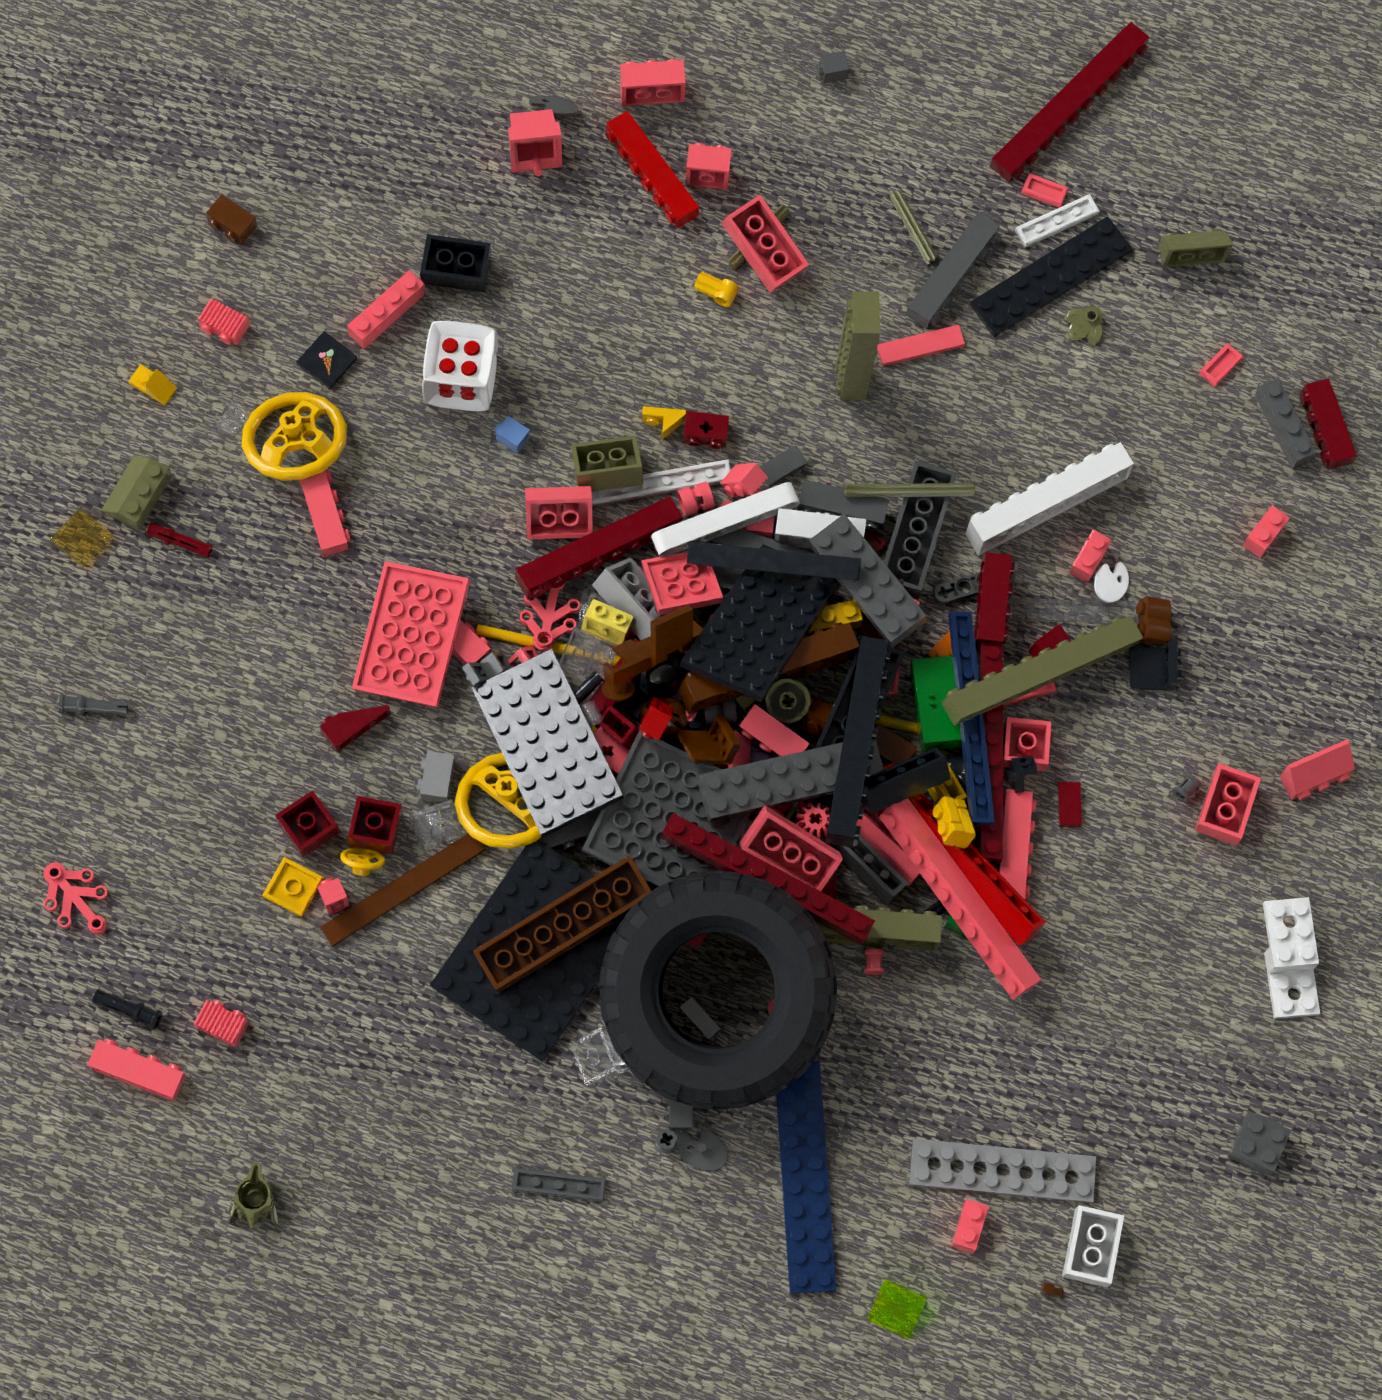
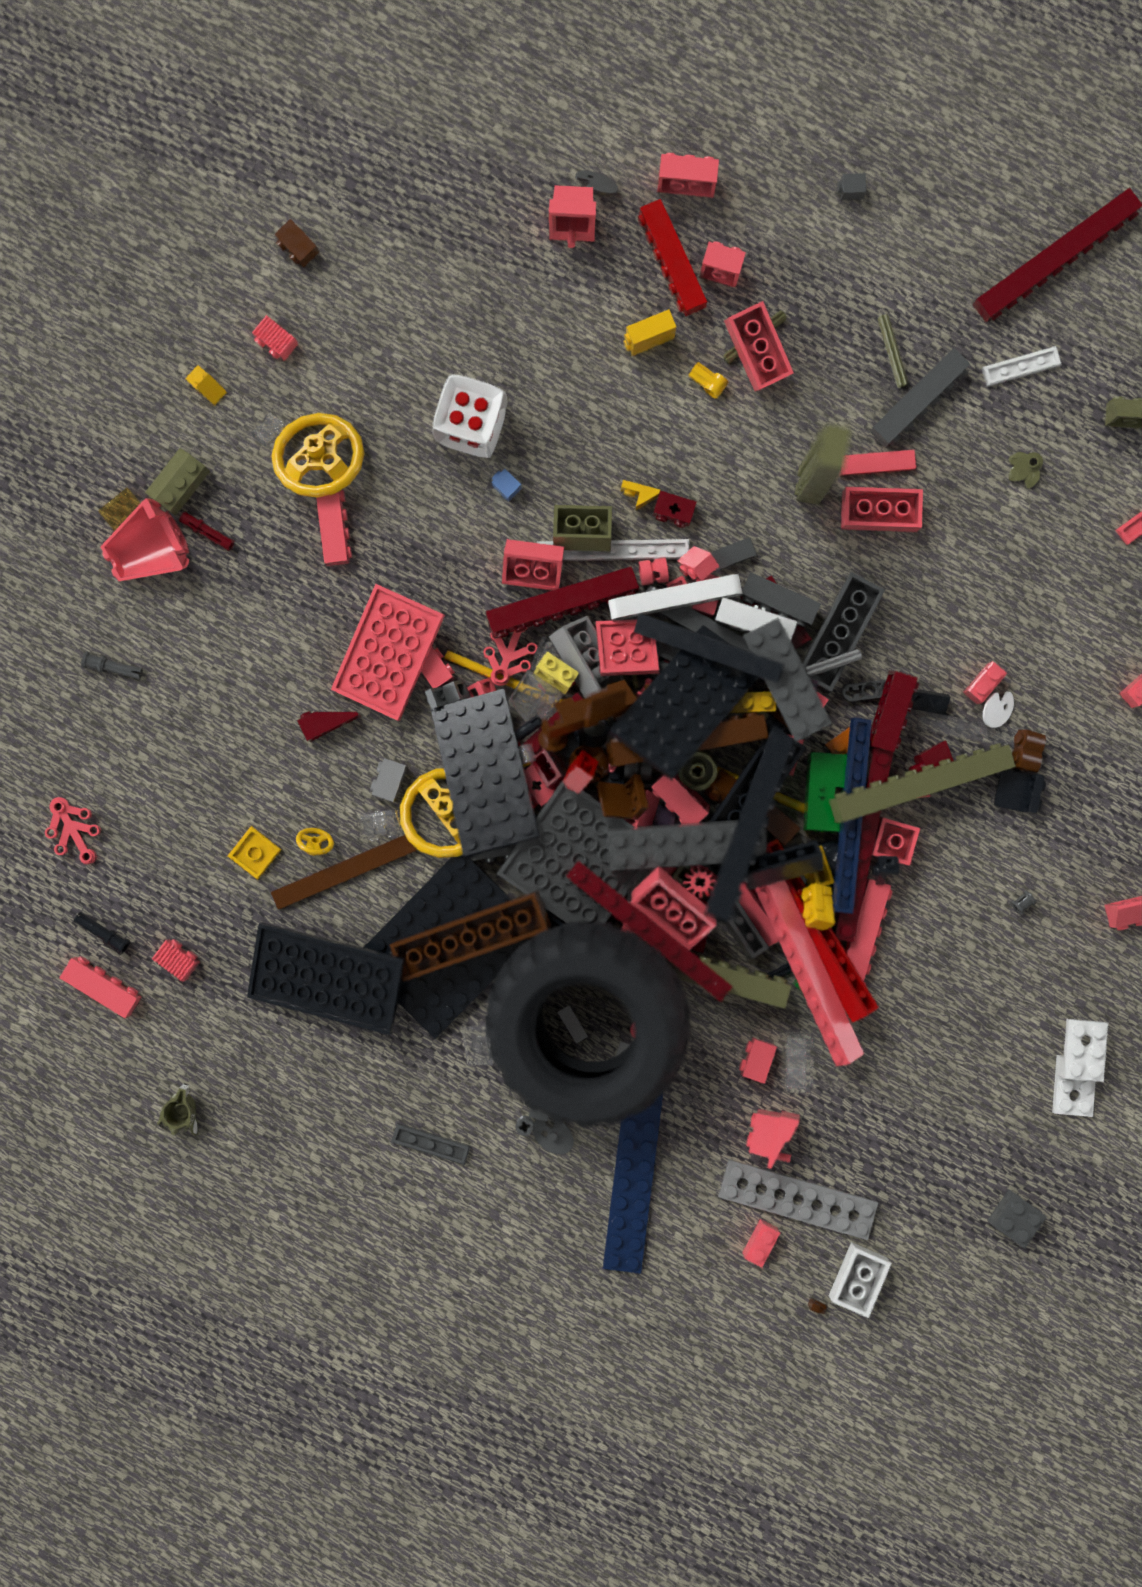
camera: 20 degrees right, 15 degrees up
(112, 563) = (146, 544): none -> coral cone
(307, 823) = (273, 803): dark red brick -> none
(326, 360) = (358, 388): black tile -> none
(333, 896) = (284, 868): coral slope -> none
(375, 825) = (329, 814): dark red brick -> none
(386, 309) = (417, 350): coral brick -> none
(403, 1006) = (325, 978): none -> black plate
(455, 263) = (484, 318): black brick -> none
(642, 249) = (650, 332): none -> yellow brick
(873, 961) = (726, 1006): coral bush -> none
(896, 1308) = (687, 1297): clear neon green hinge -> none
(909, 490) = (840, 599): olive axle -> none
(918, 558) = (833, 663): none -> light grey axle
(922, 1017) = (757, 1060): none -> coral brick
(936, 391) = (882, 509): none -> coral brick
(954, 1093) = (770, 1134): none -> coral piece
(969, 1011) = (798, 1062): none -> clear brick
(1033, 587) = (930, 701): none -> black plate
(1044, 190) = (1016, 336): coral tile -> none
(1049, 498) = (962, 625): white brick -> none
(1050, 276) = (1005, 418): black plate -> none
(1069, 804) = (919, 898): dark red tile -> none
(1227, 804) = (1055, 925): coral brick -> none

